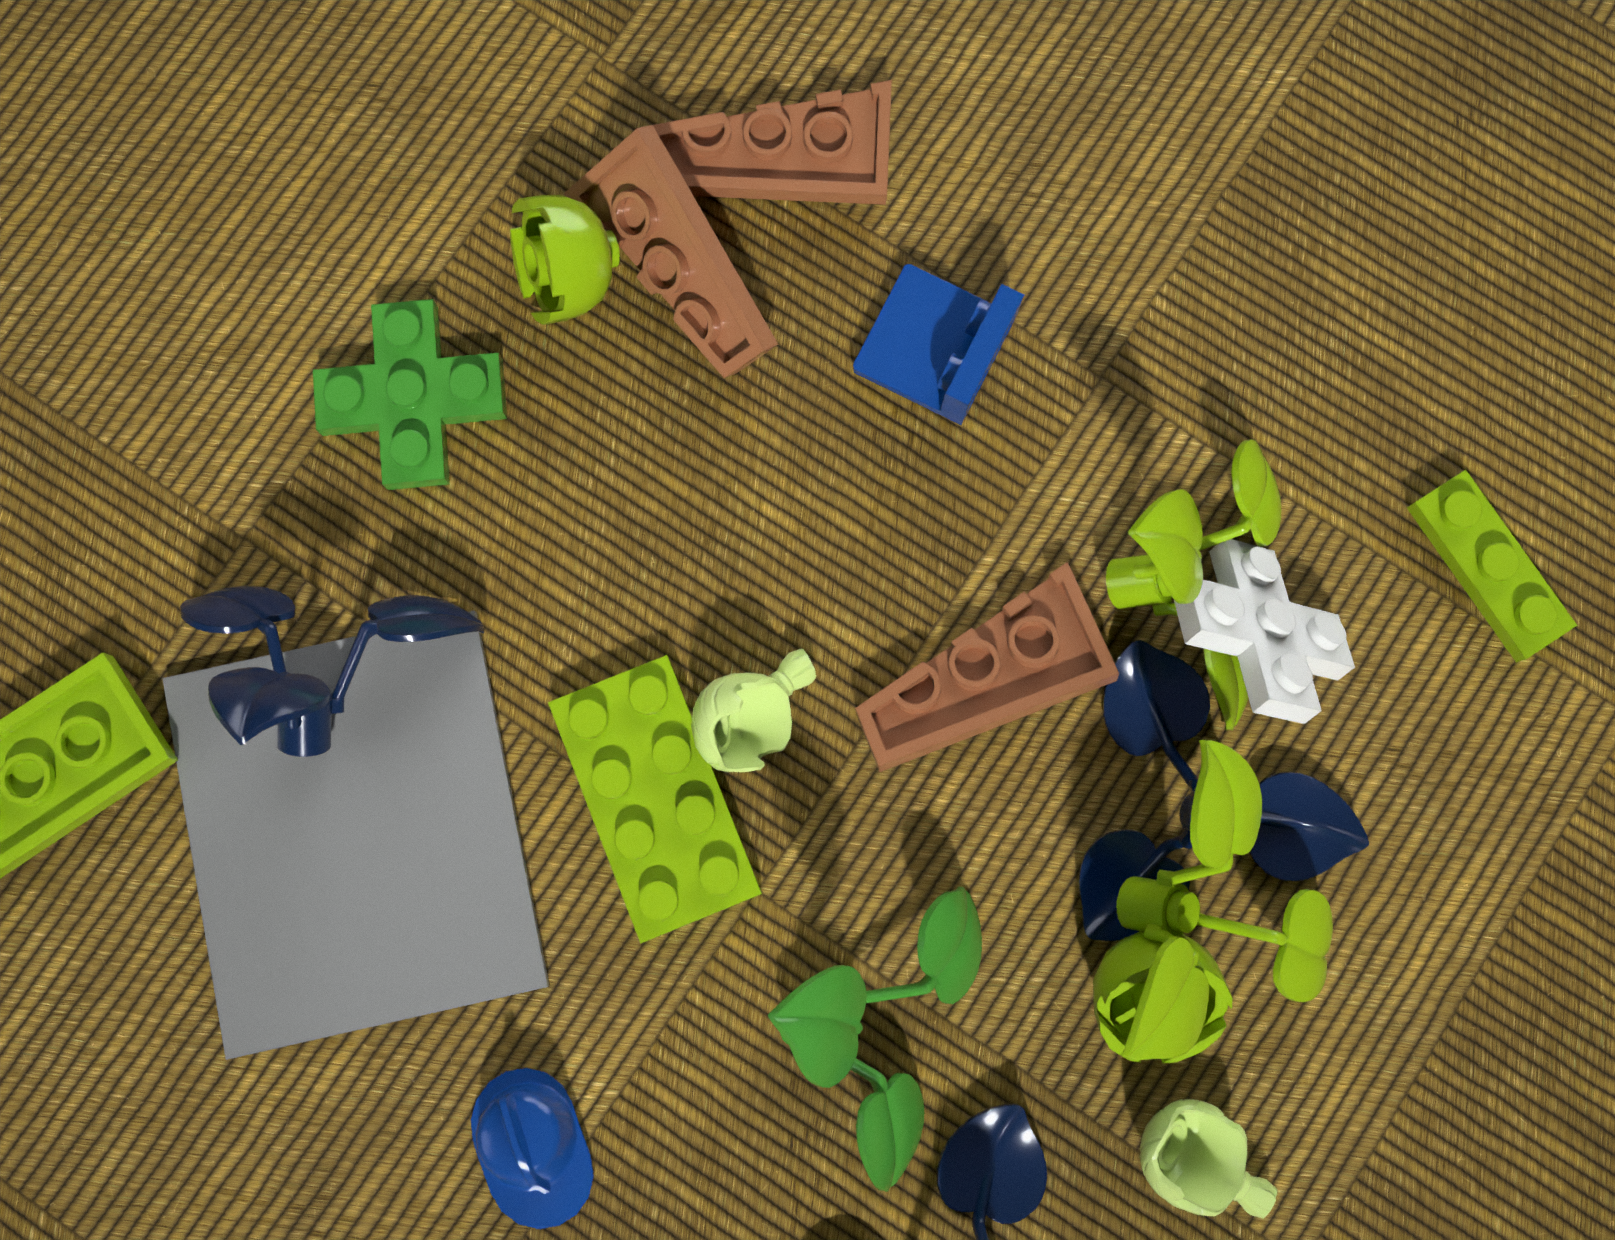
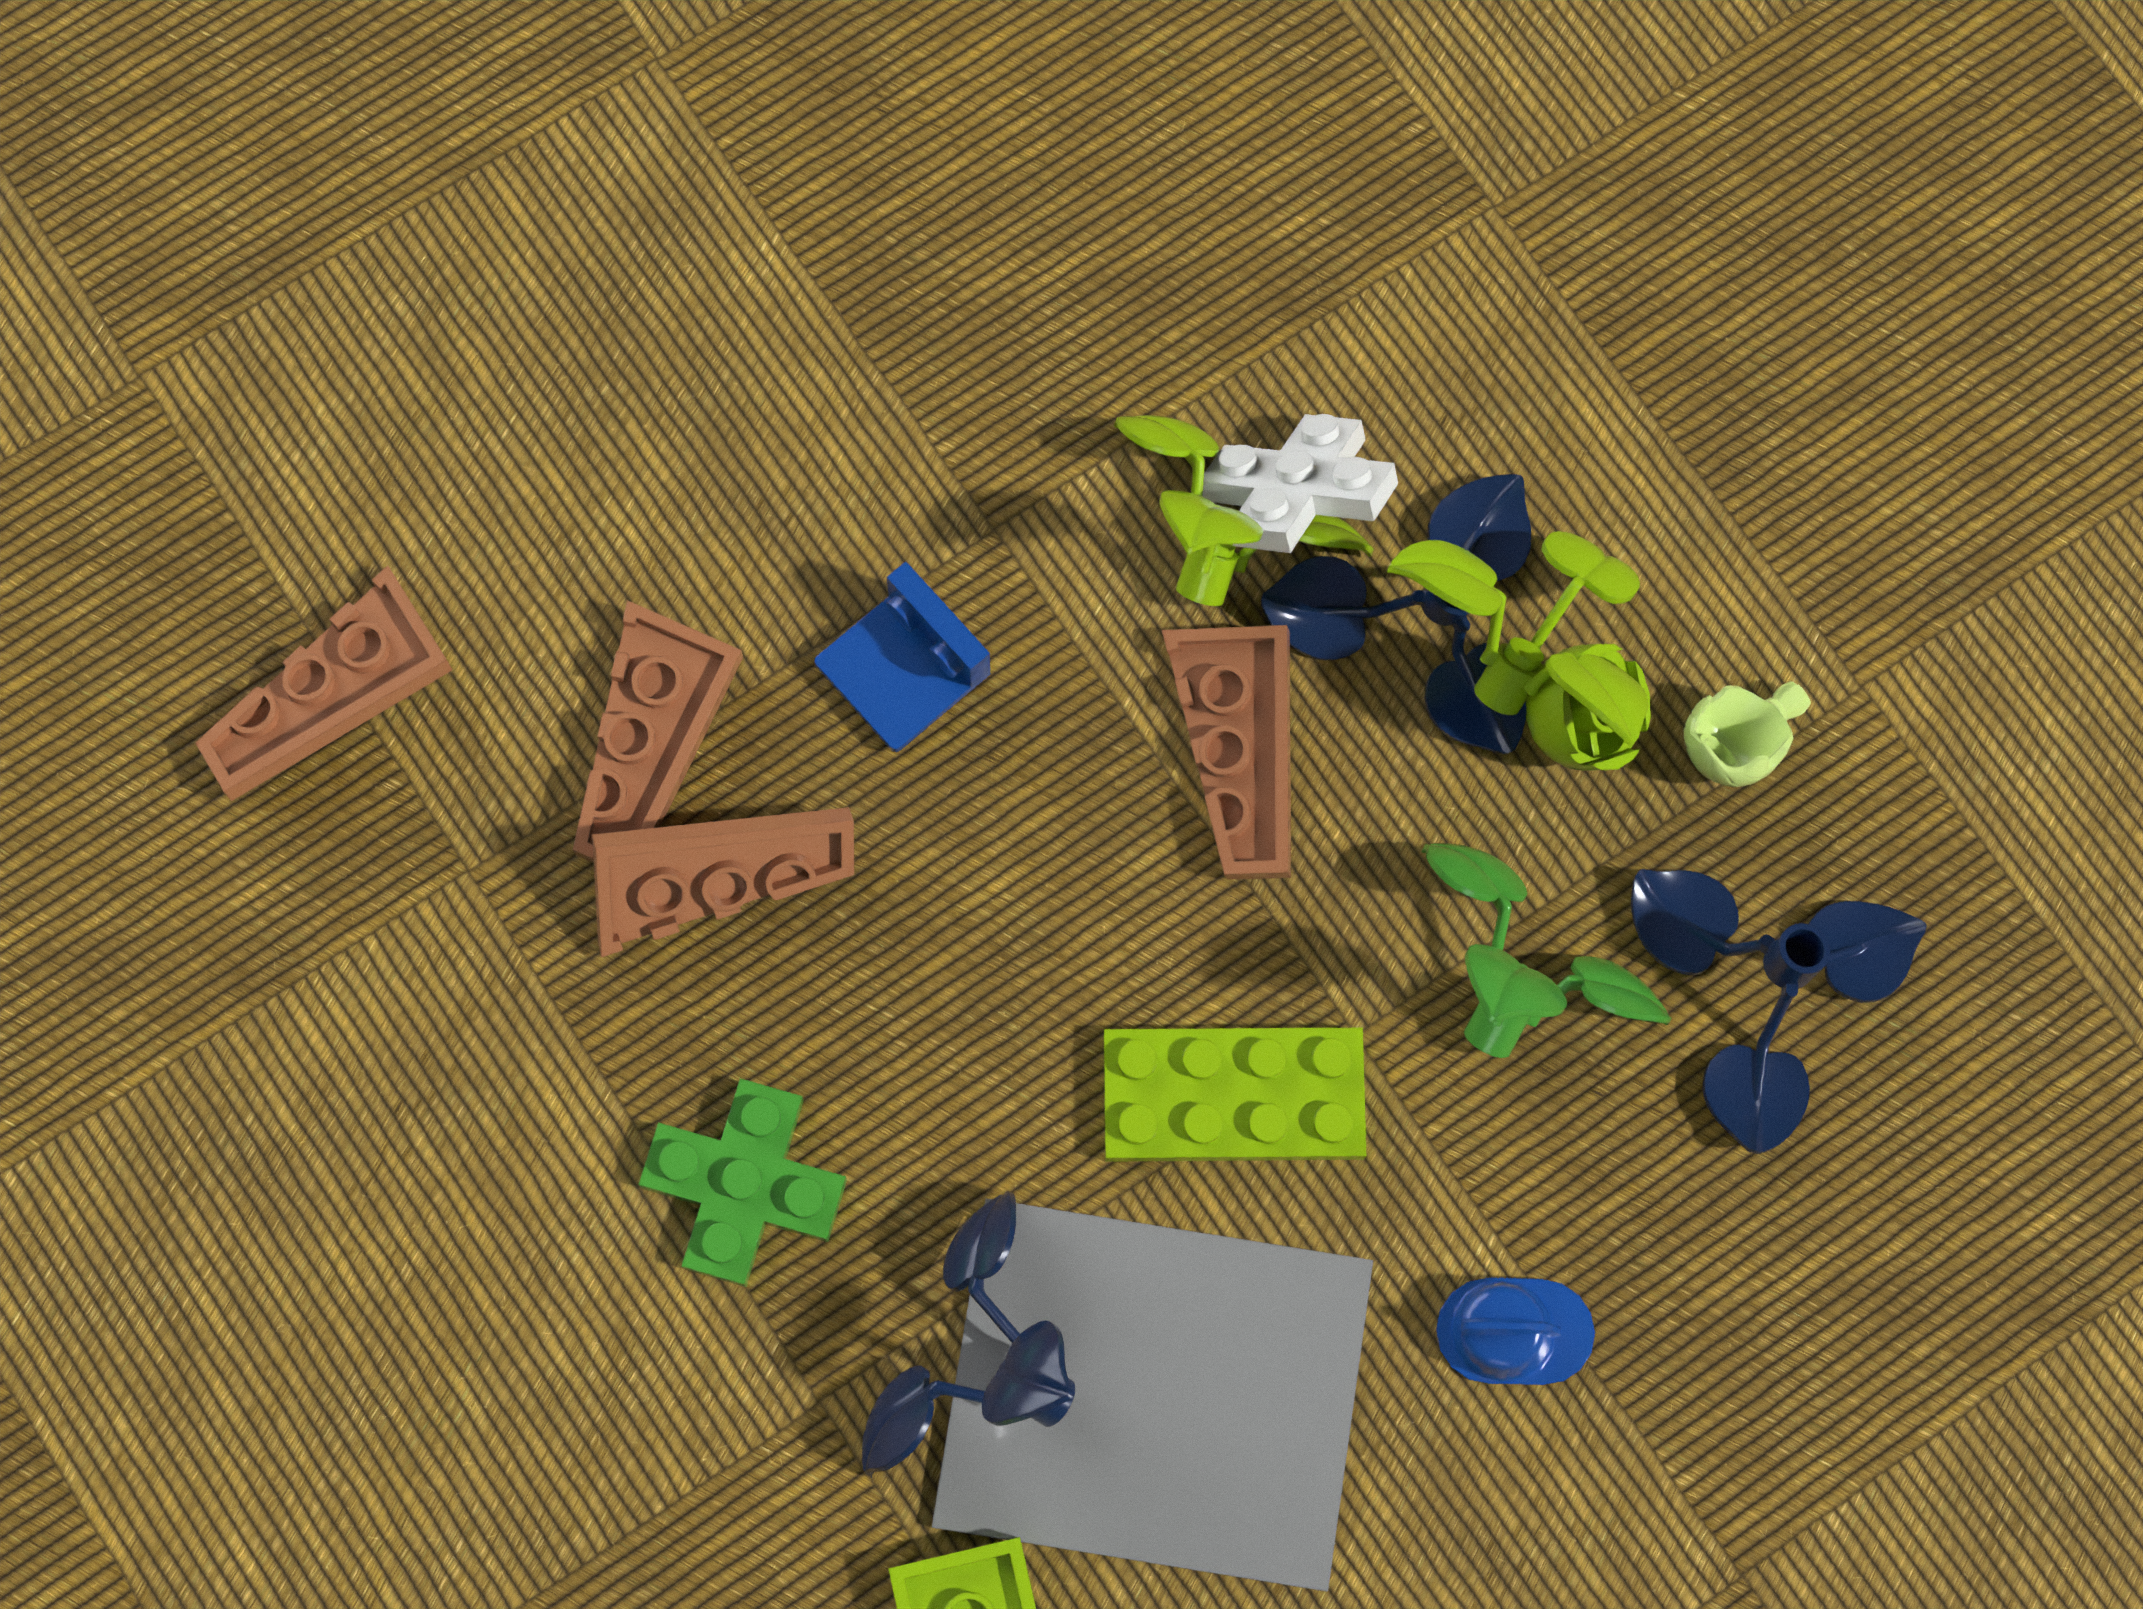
camera: 70 degrees left, 5 degrees down
(562, 256) = (675, 979): lime cylinder -> none
(748, 714) = (1192, 972): yellowish green hair -> none
(1491, 566) = (1312, 264): lime plate -> none

